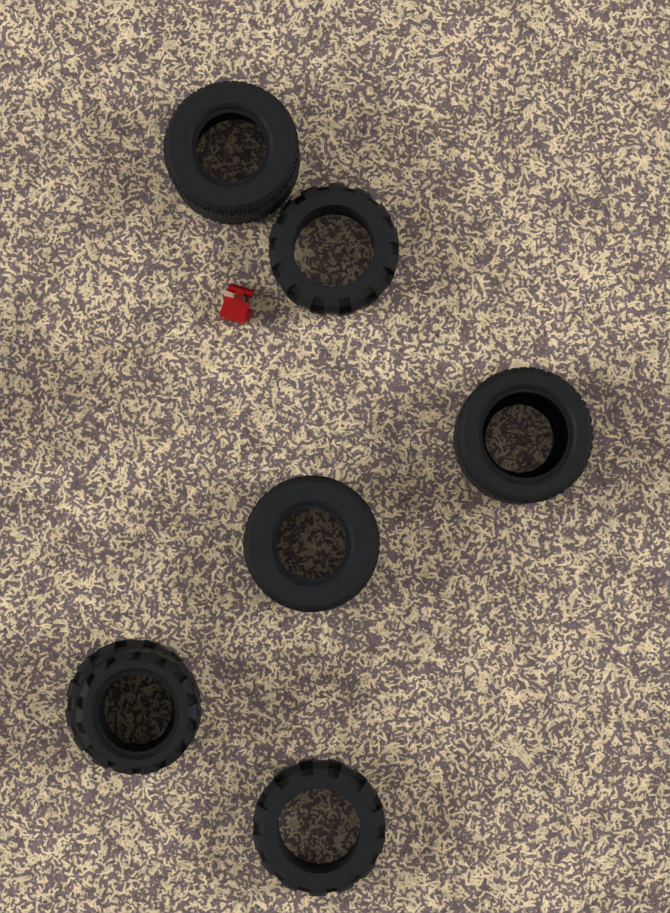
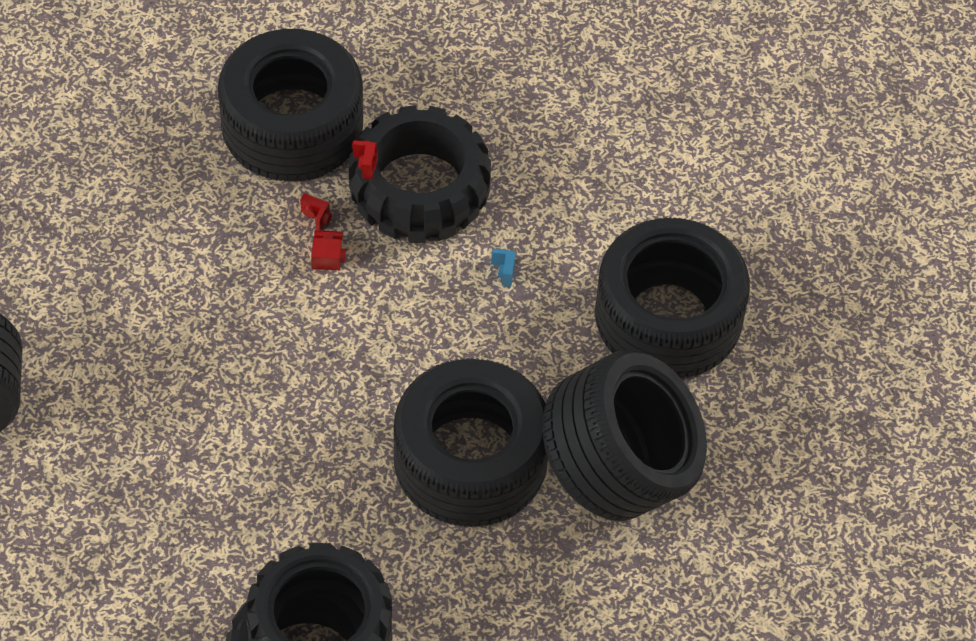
camera: 20 degrees left, 30 degrees down
(234, 259) = (318, 208): none -> red bracket
(283, 245) = (367, 155): none -> red bracket
(389, 361) = (506, 263): none -> dark azure bracket
(473, 588) = (624, 435): none -> black tyre

